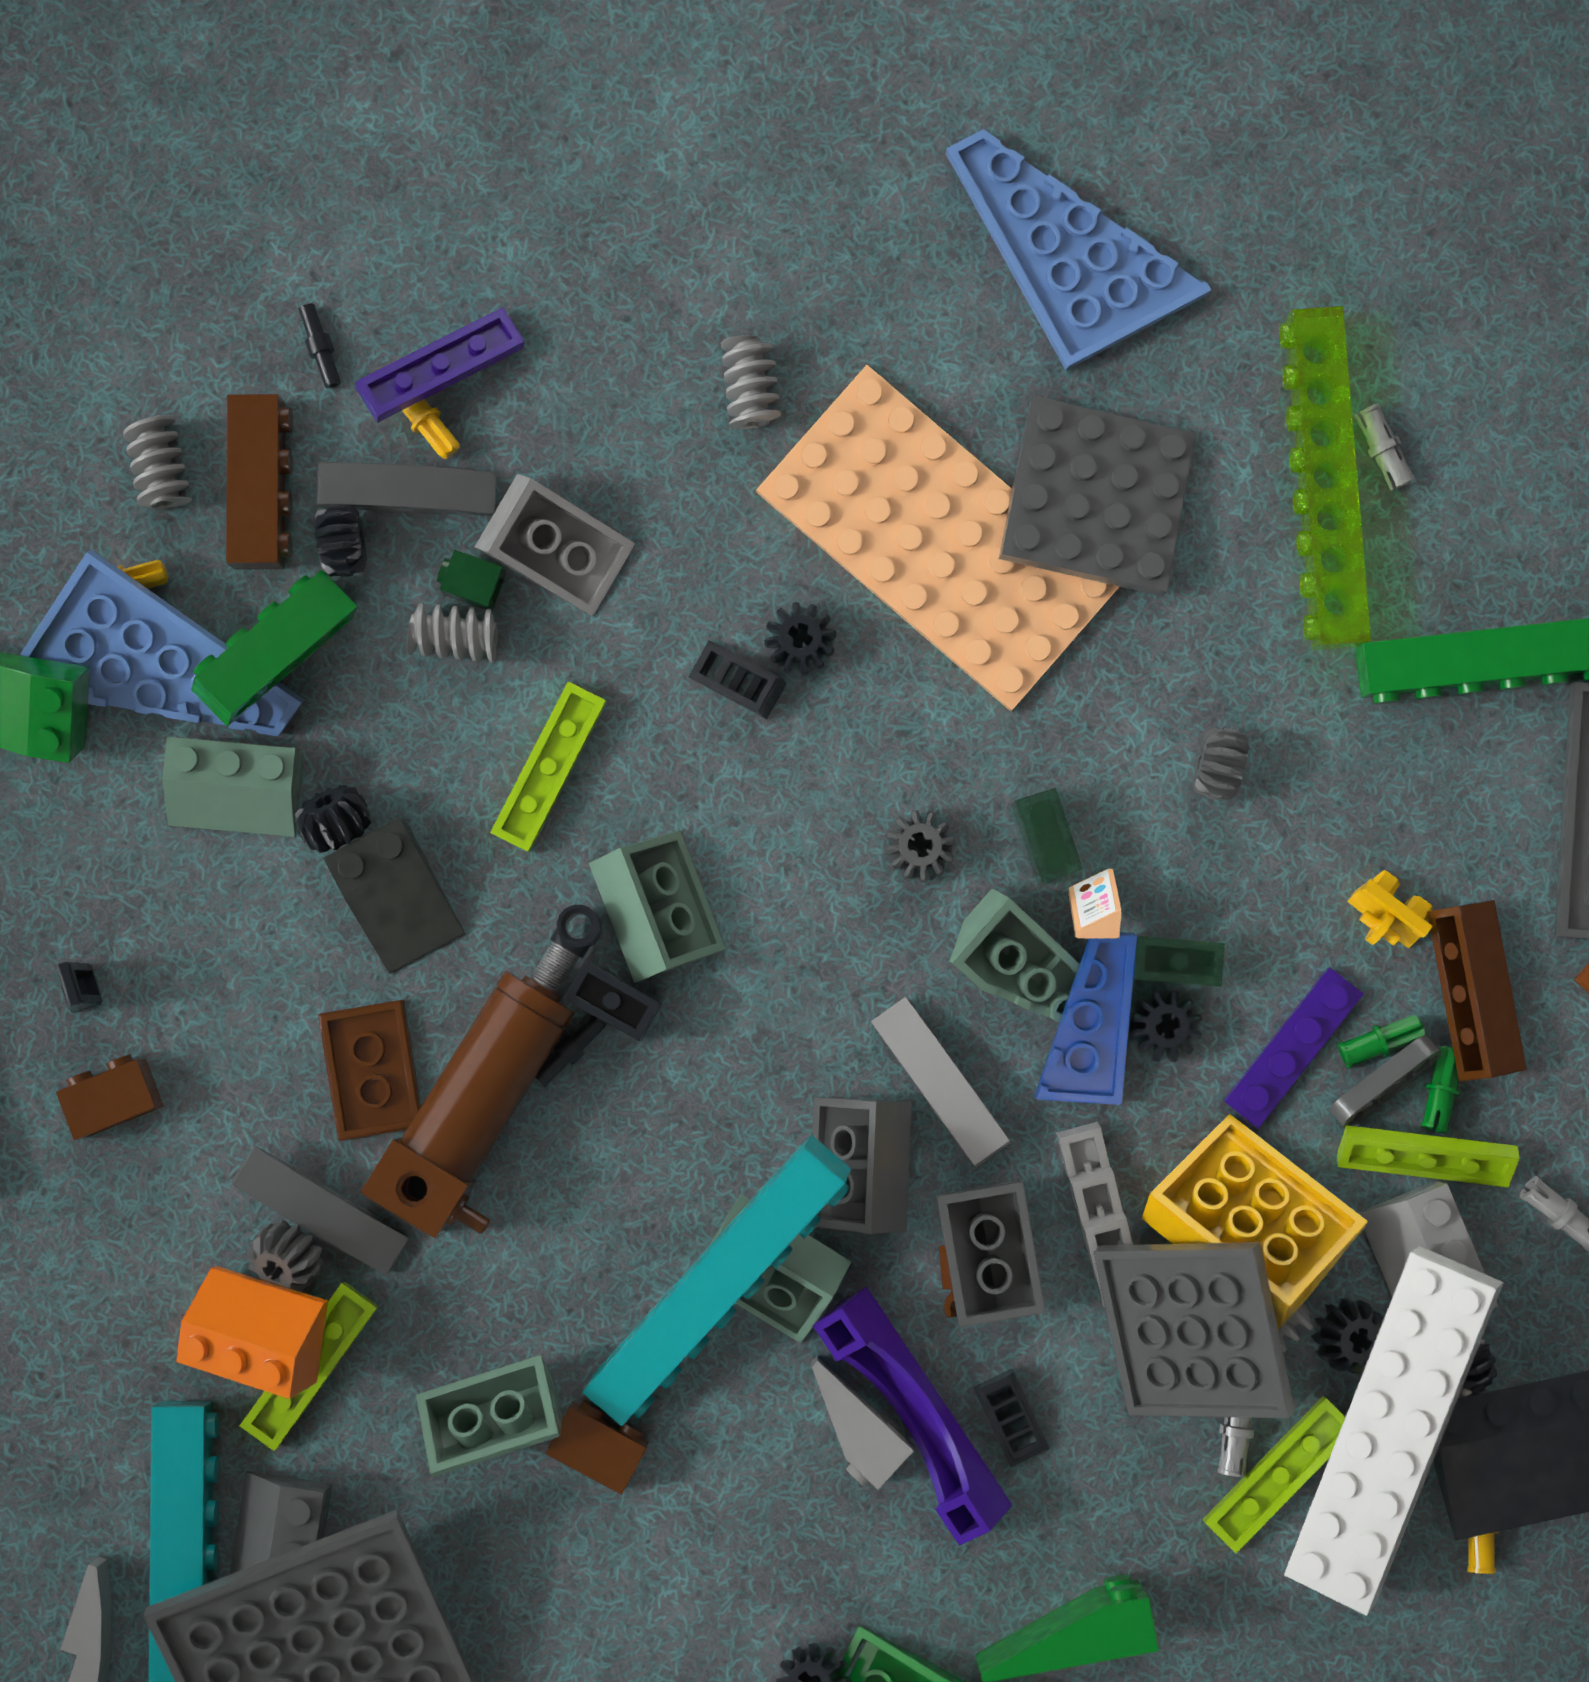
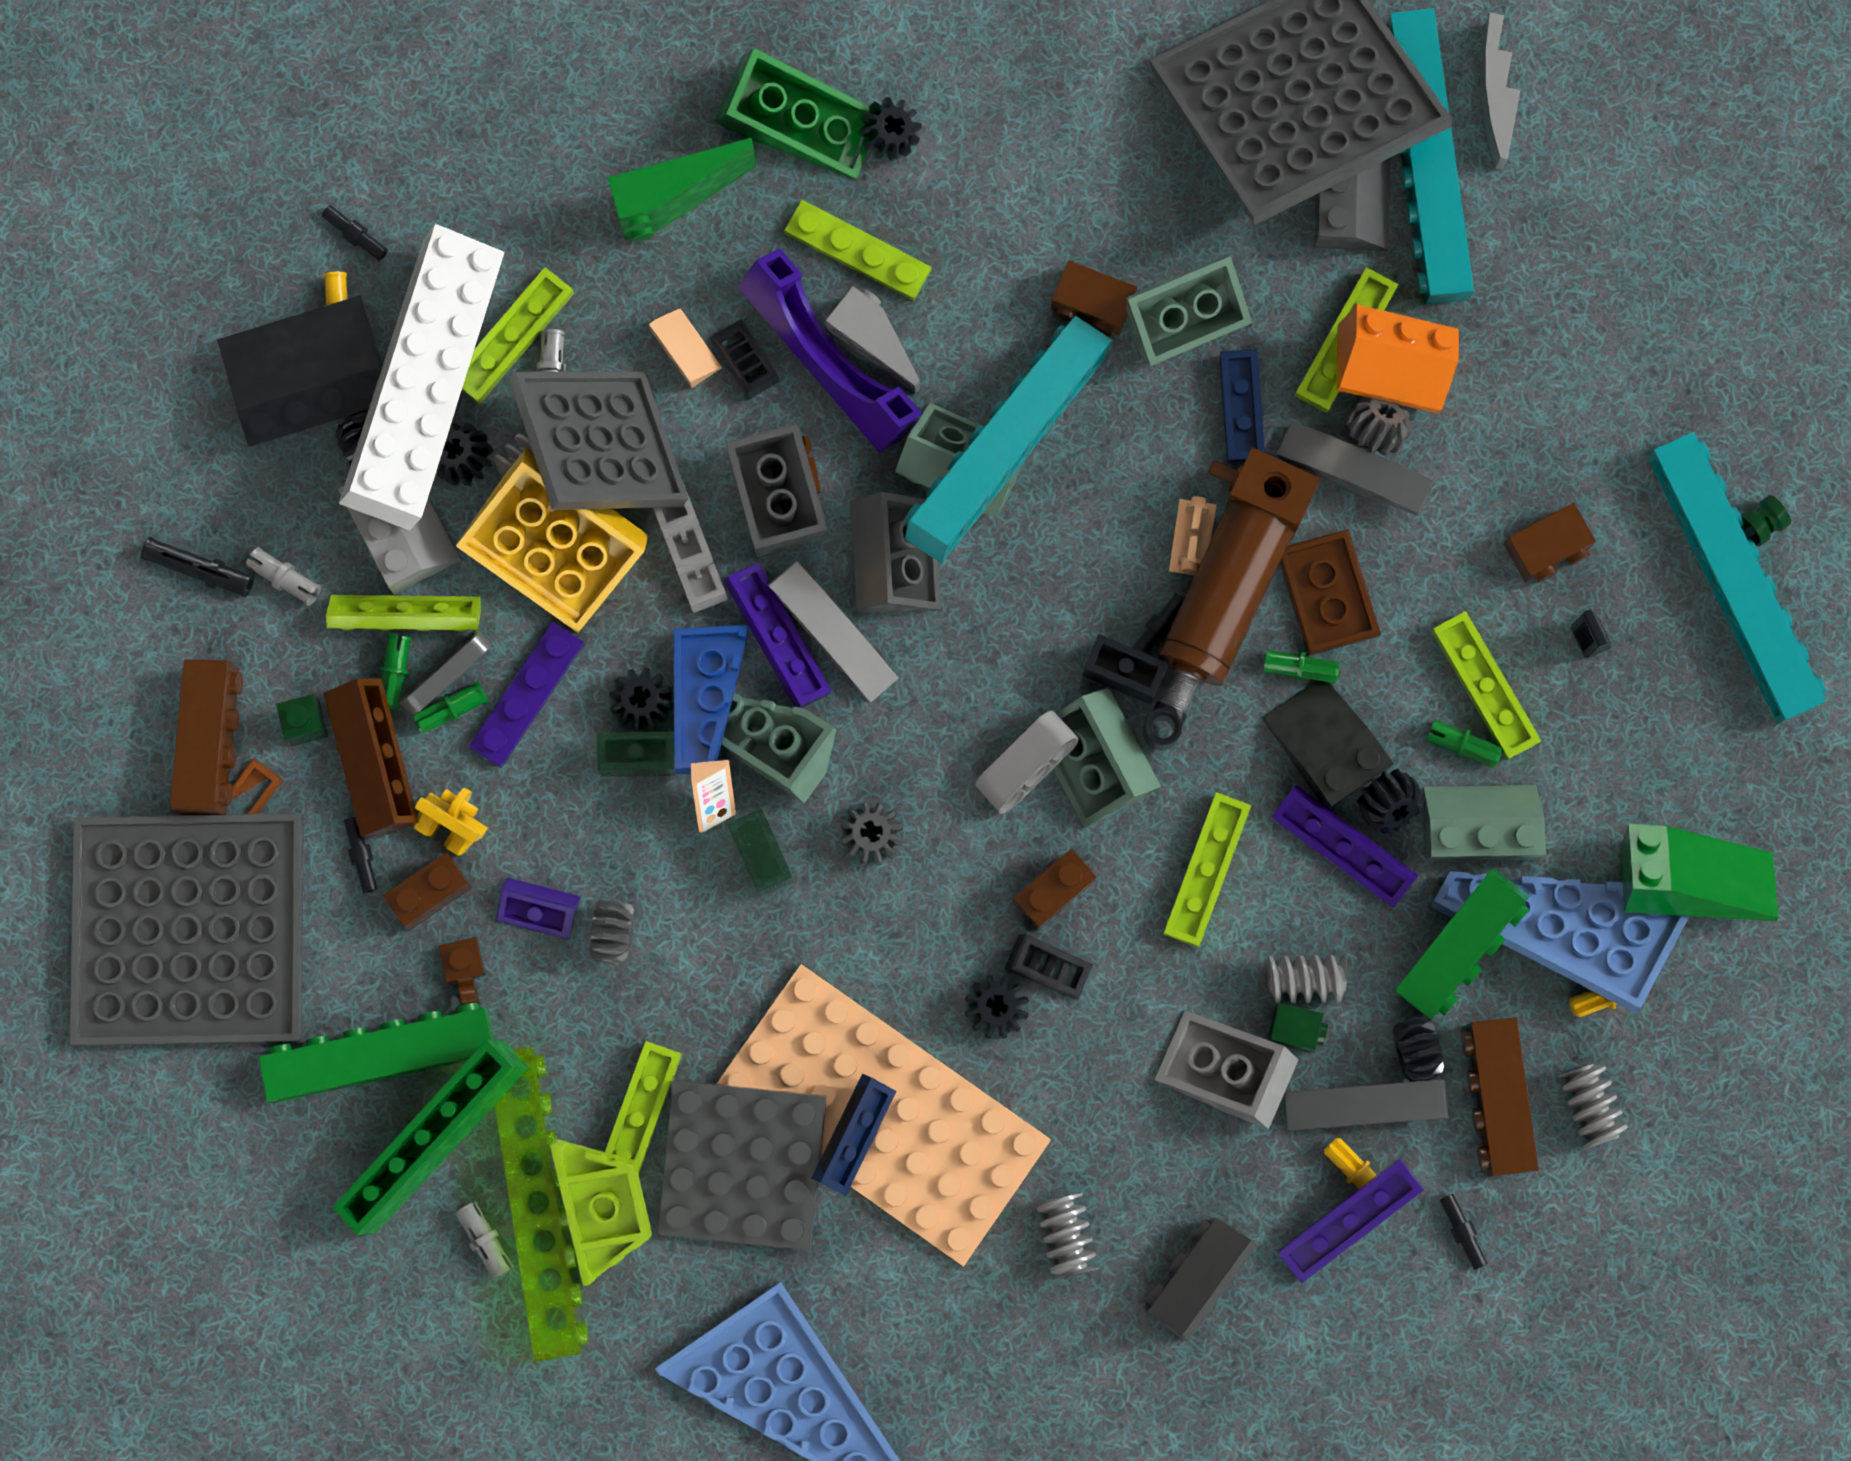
camera: 175 degrees right, 5 degrees down
(207, 942) = (1486, 685): none -> lime plate
(241, 878) = (1465, 744): none -> green axle
(391, 776) = (1344, 846): none -> dark purple plate
(412, 986) = (1301, 666): none -> green axle
(441, 1300) = (1241, 403): none -> dark blue plate
(518, 1152) = (1191, 534): none -> light nougat hinge
(611, 318) = (1199, 1277): none -> dark grey slope
(722, 760) = (1054, 889): none -> reddish brown brick
(736, 906) = (1027, 762): none -> light grey beam
(866, 1537) = (858, 250): none -> lime plate
(973, 510) = (854, 1134): none -> dark blue plate
(1004, 1083) = (777, 636): none -> dark purple plate
(1078, 1439) = (685, 347): none -> light nougat slope
(1207, 558) = (643, 1103): none -> lime plate
(1257, 465) = (601, 1206): none -> lime wing
(1299, 805) = (537, 908): none -> dark purple slope
(1386, 751) = (463, 964): none -> reddish brown plate
(1422, 832) = (427, 891): none -> reddish brown brick
(1440, 554) = (430, 1137): none -> green brick
(1454, 1621) = (354, 233): none -> black bar
(1493, 883) = (360, 855): none -> black bar
(1552, 1042) = (302, 720): none -> dark green brick

